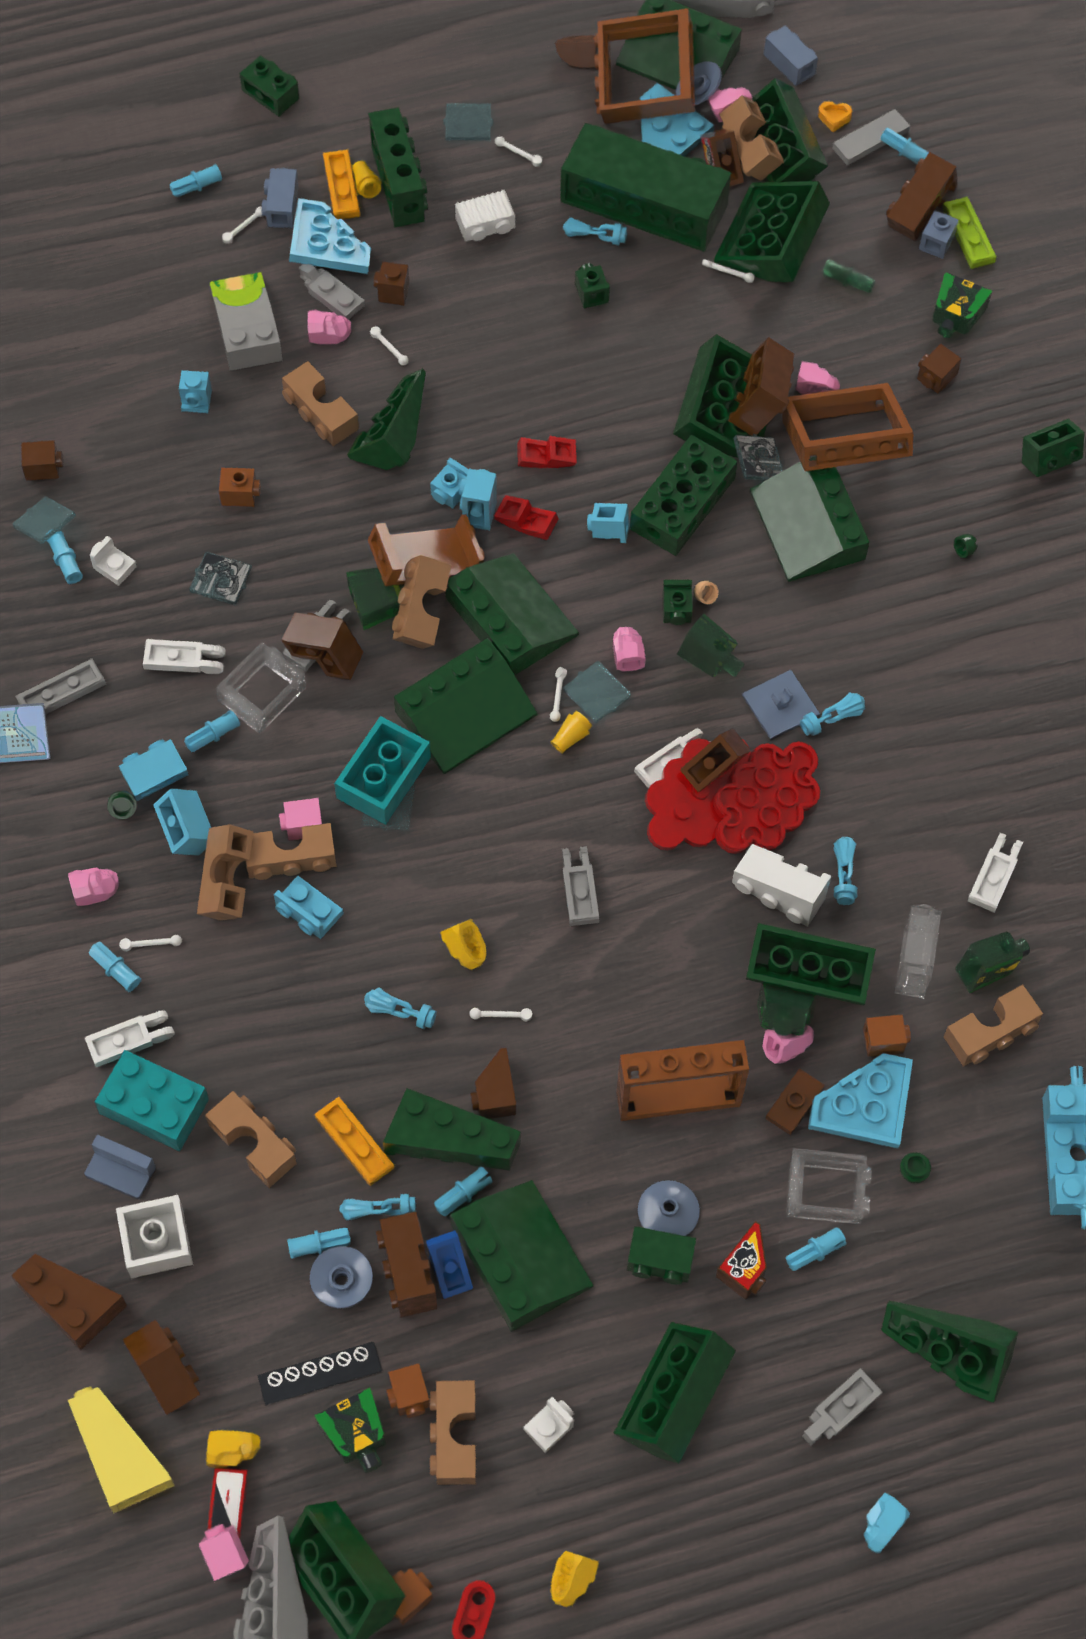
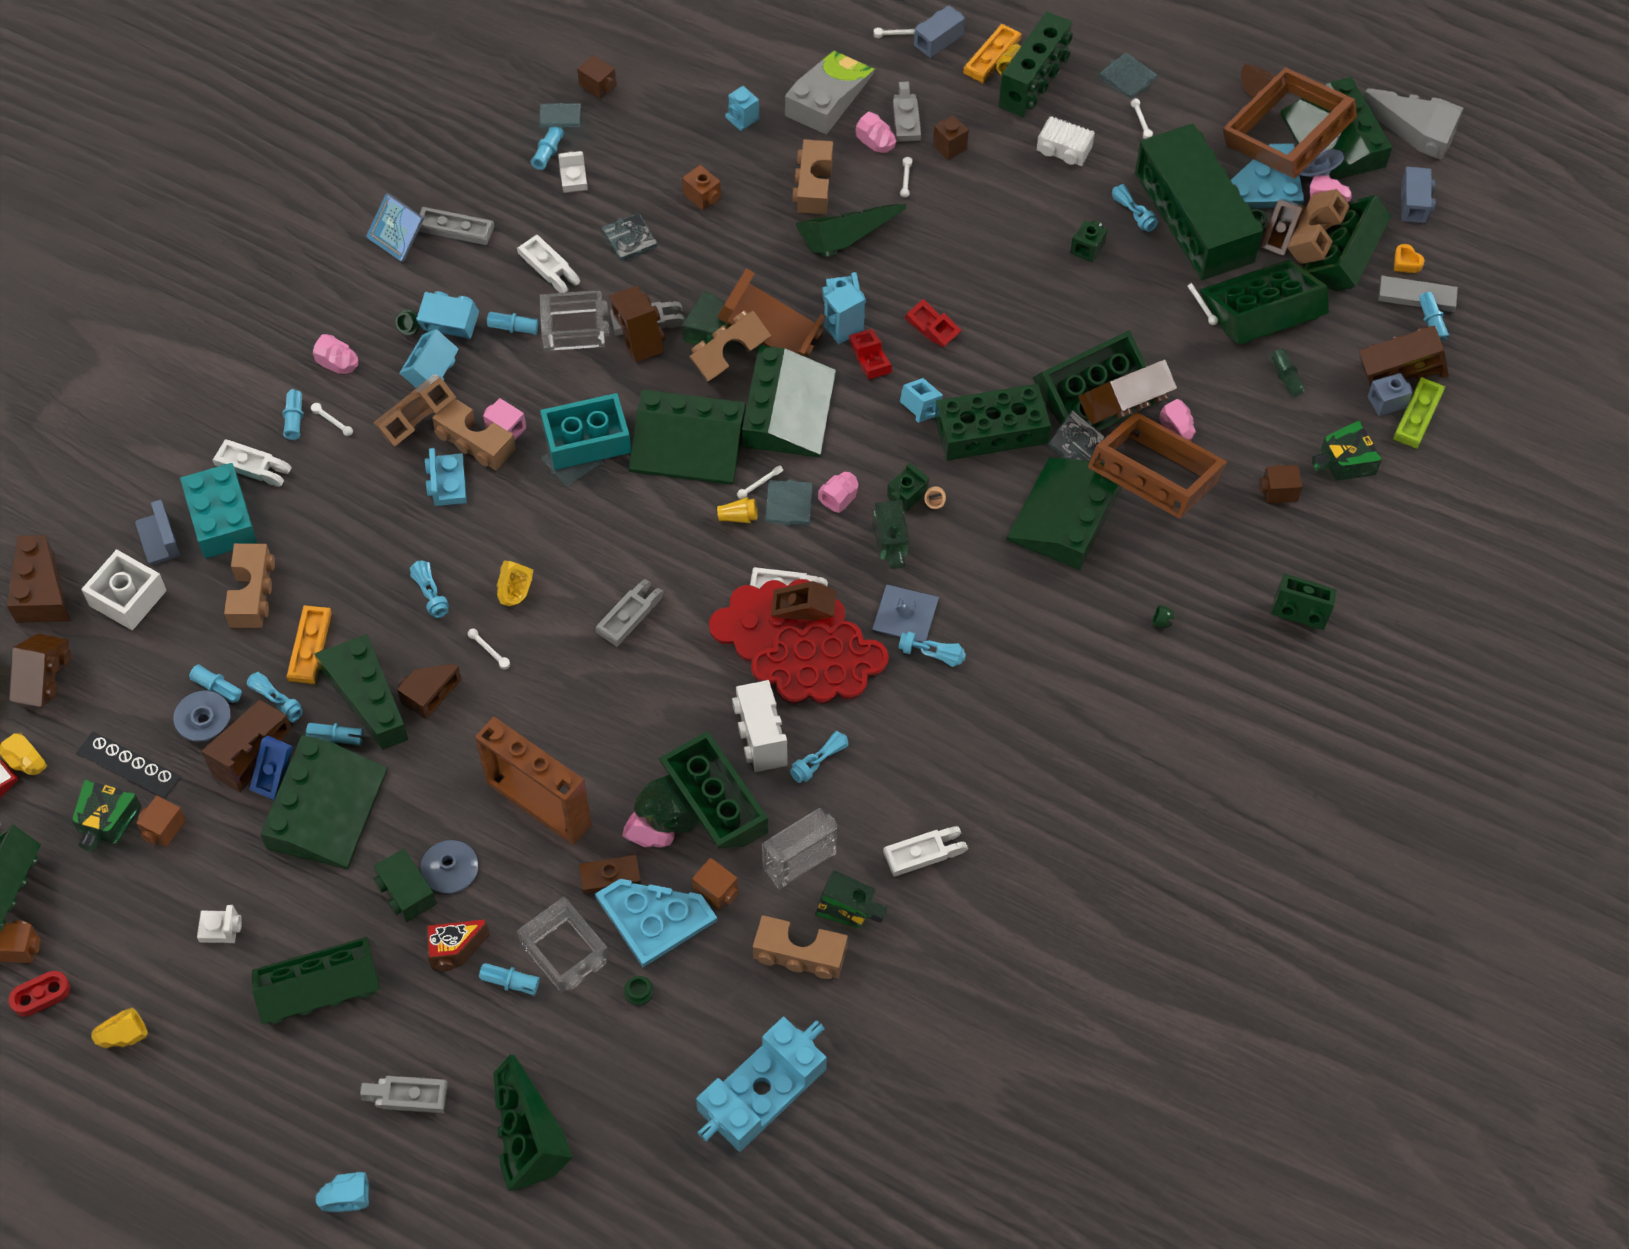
camera: 45 degrees right, 5 degrees down
(326, 241) = (937, 78): medium azure plate -> none
(453, 1462) = (172, 854): medium nougat arch -> none

